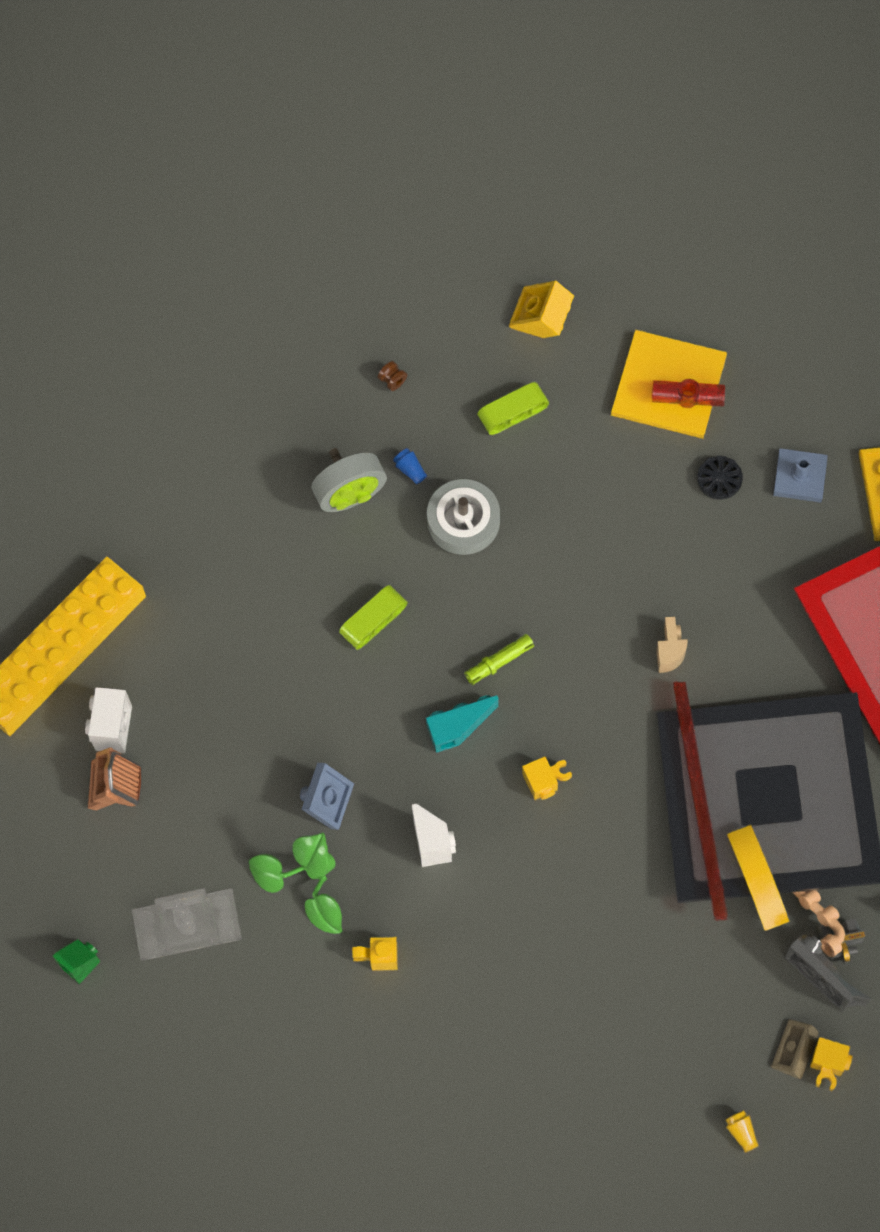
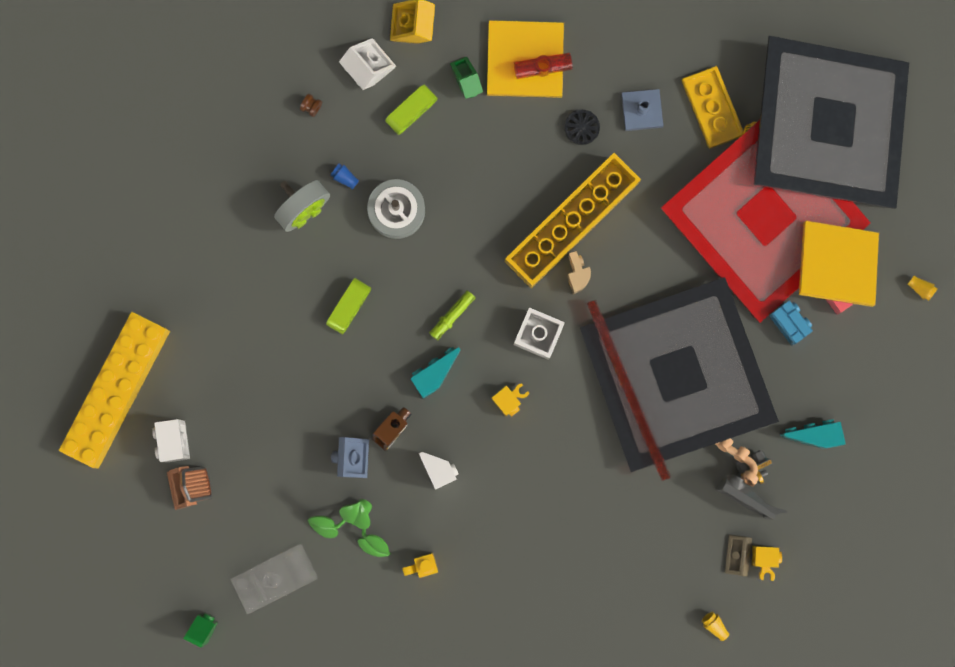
camera: 25 degrees left, 15 degrees up
(384, 775) = (386, 434): none -> reddish brown torso
(473, 344) = (367, 63): none -> white slope
(591, 388) = (466, 77): none -> green slope
(602, 704) = (539, 333): none -> white brick
(679, 581) = (572, 220): none -> yellow brick
(758, 877) = (685, 439): yellow slope -> none

